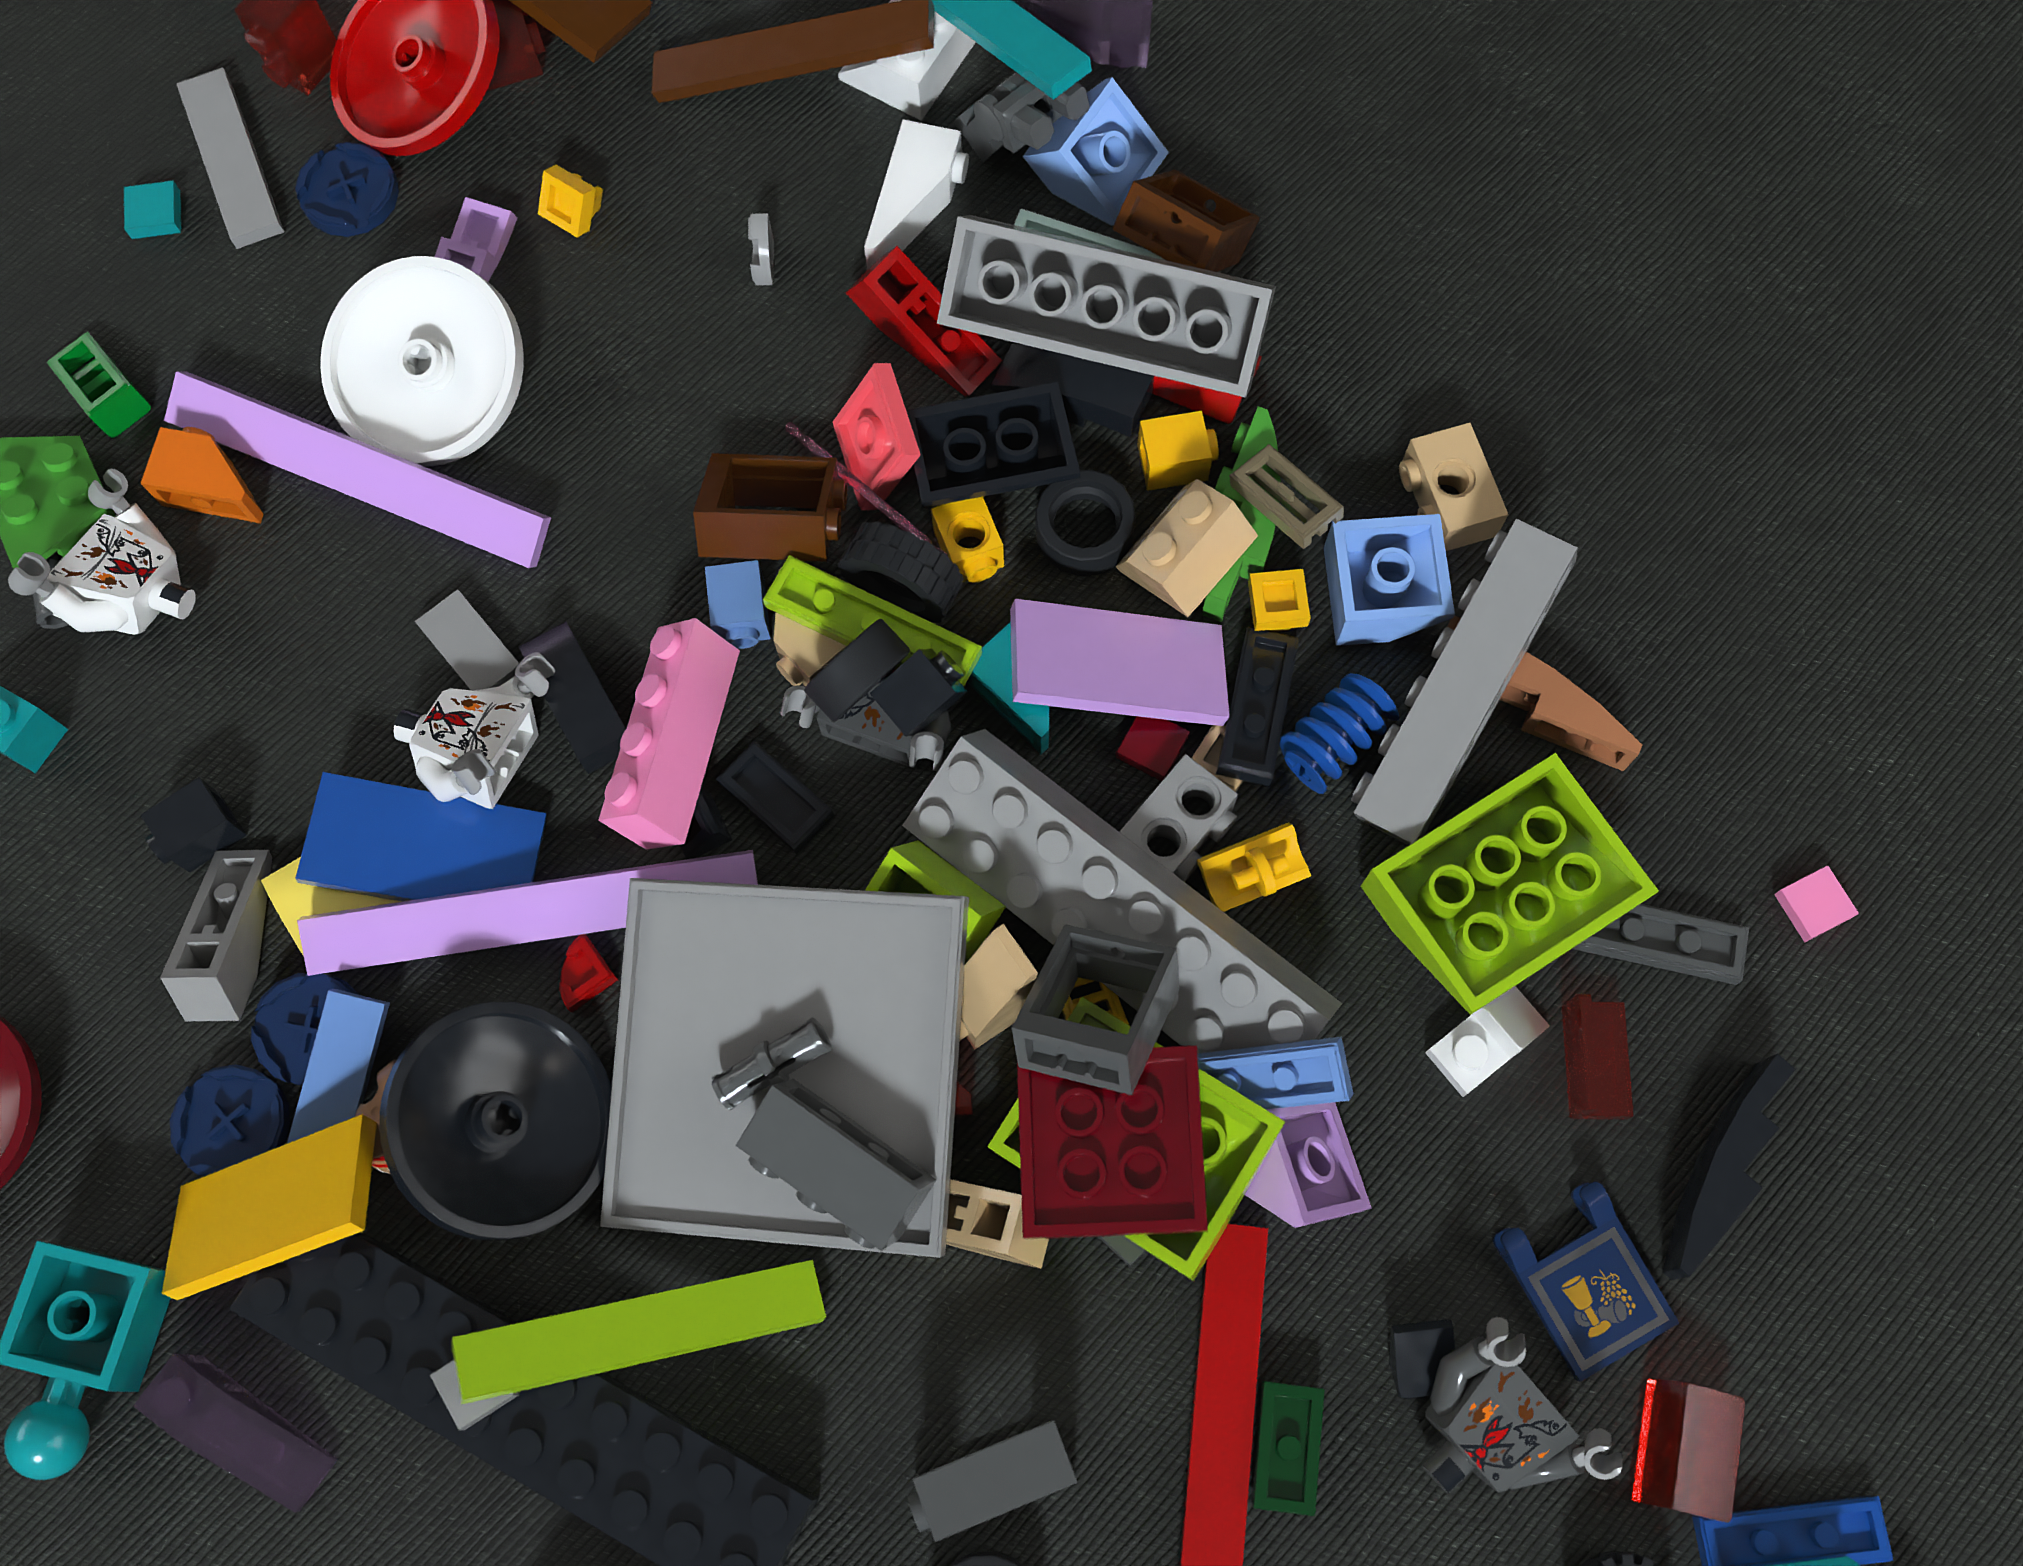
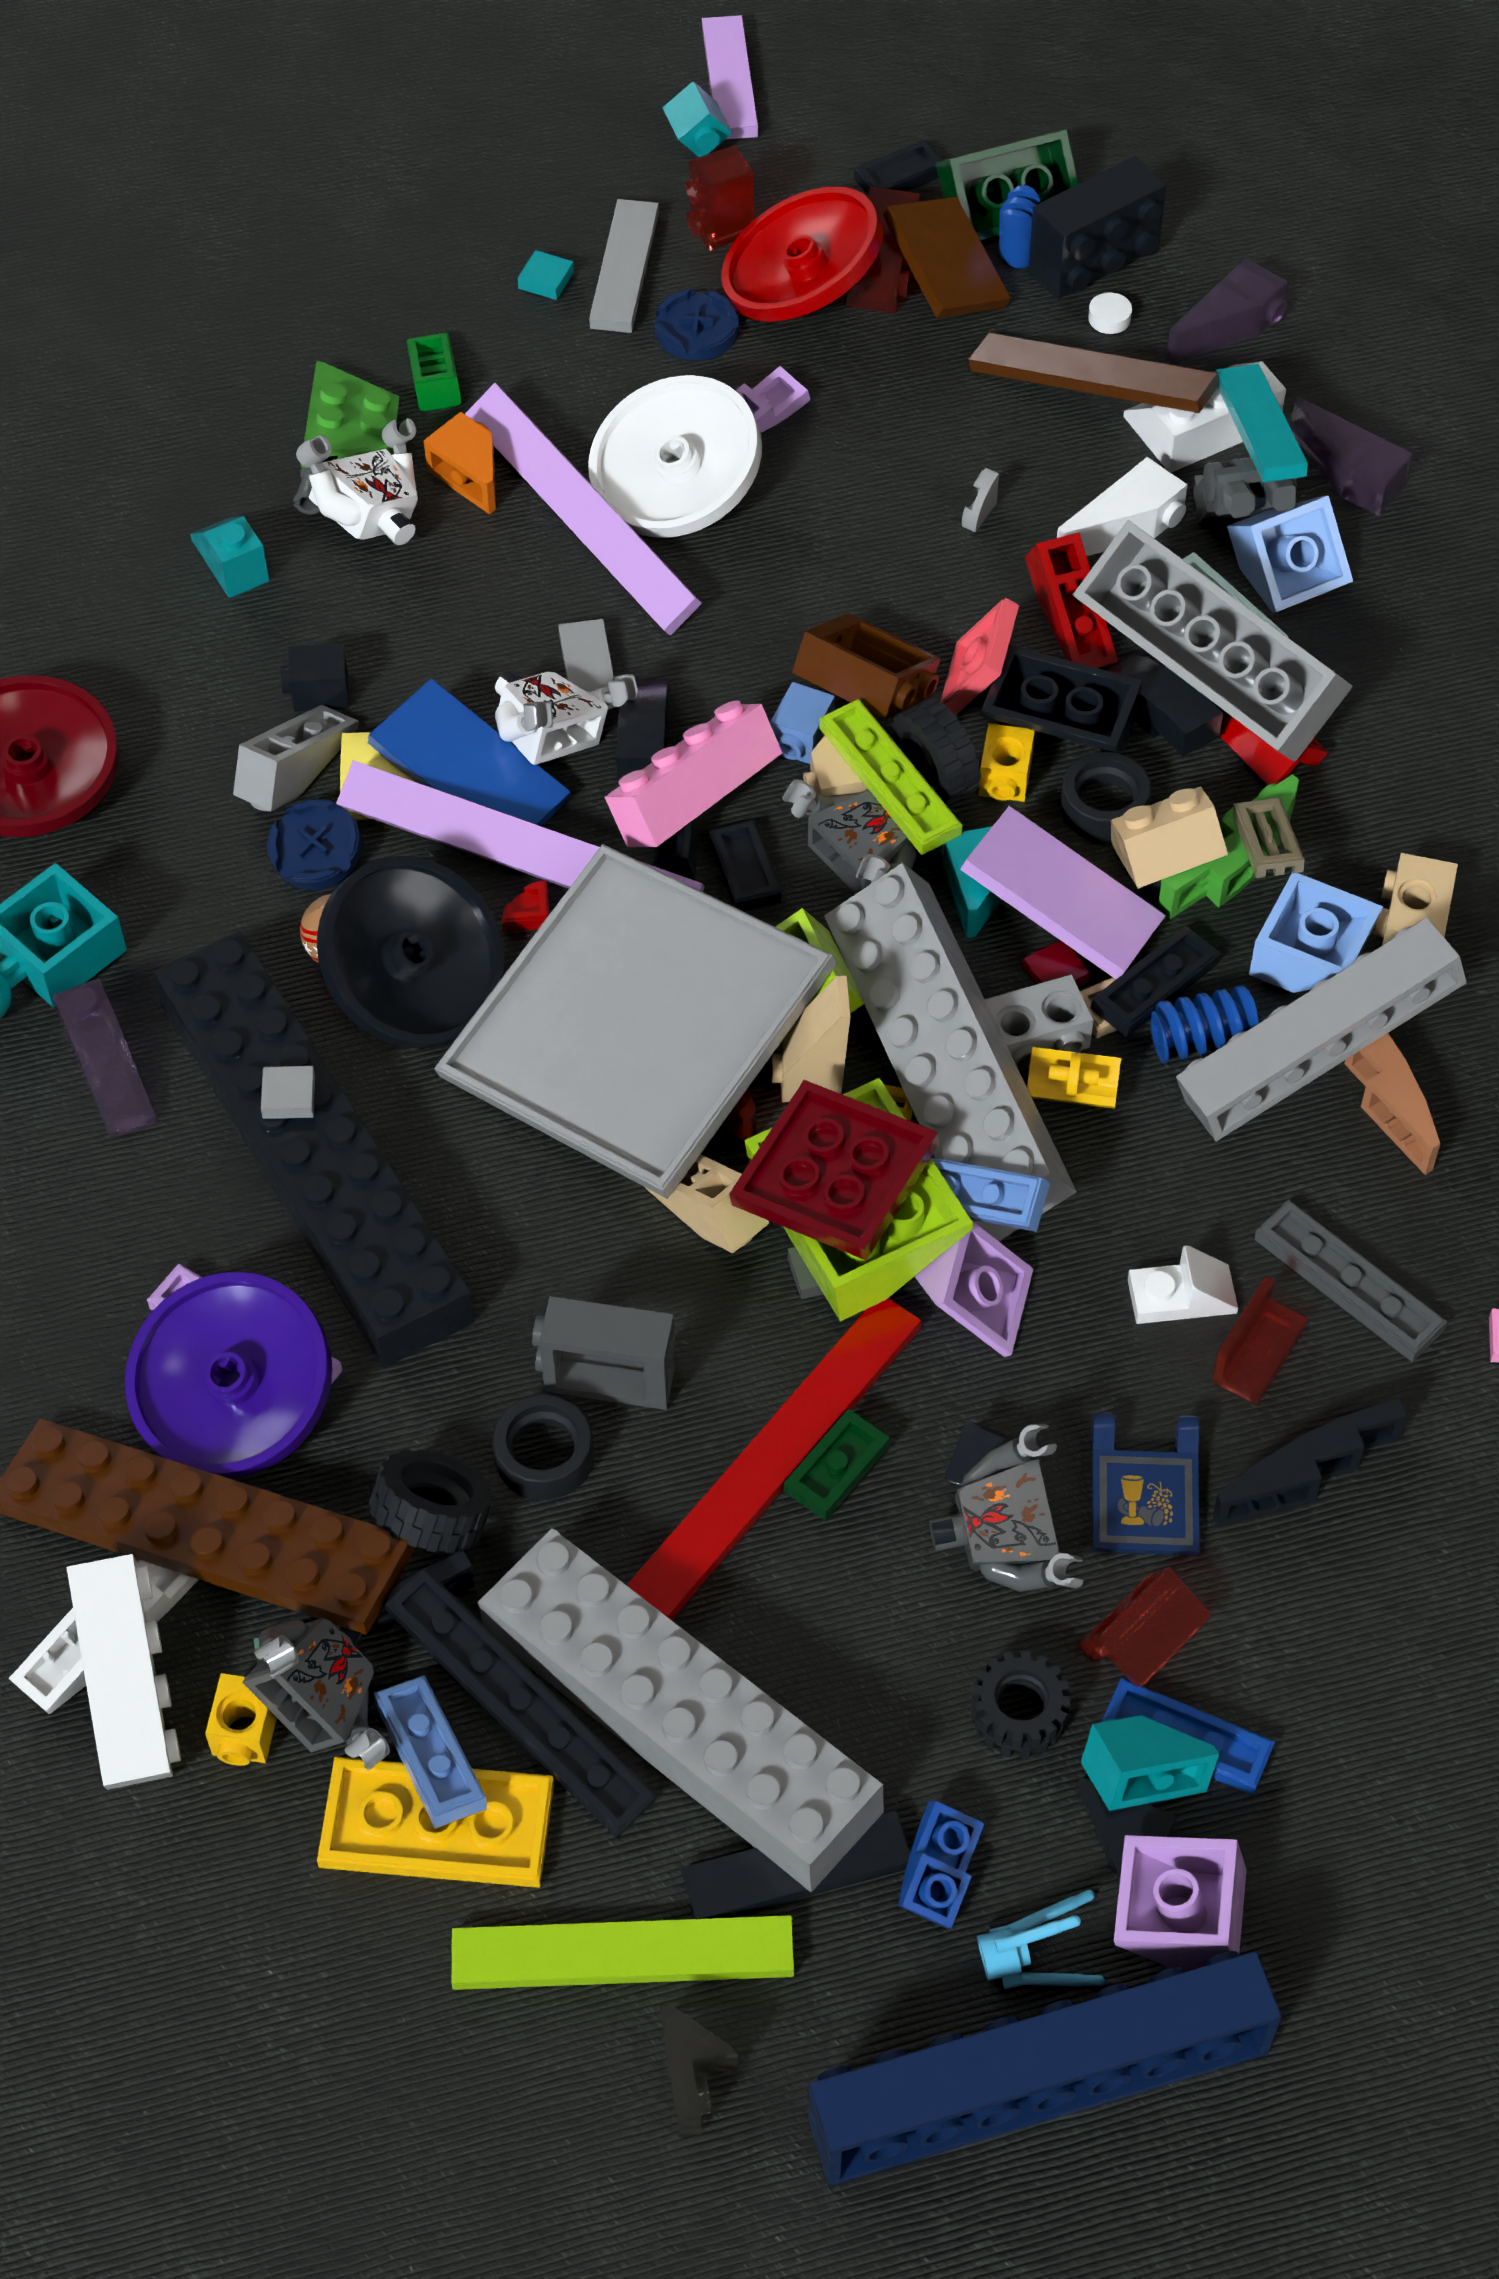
camera: 30 degrees right, 15 degrees down
(228, 1118) = (221, 877): dark blue tile -> none
(271, 1207) = (220, 923): yellow tile -> none
(339, 1062) = (314, 874): medium blue tile -> none
(568, 200) = (856, 402): yellow tile -> none
(635, 1331) = (422, 1127): lime tile -> none
(771, 1063) = (592, 1009): dark grey pin -> none
(834, 1164) = (626, 1086): dark grey brick -> none
(856, 670) = (855, 785): black tyre -> none
(859, 486) = (943, 681): clear pink piece -> none
(920, 690) = (894, 824): black brick -> none
(1084, 1051) = (845, 1065): dark grey window -> none
(1173, 221) = (1322, 621): reddish brown window -> none
(1176, 450) = (1217, 773): yellow brick -> none
(1279, 600) = (1219, 915): yellow tile -> none
(1508, 885) = (1264, 1176): lime slope -> none

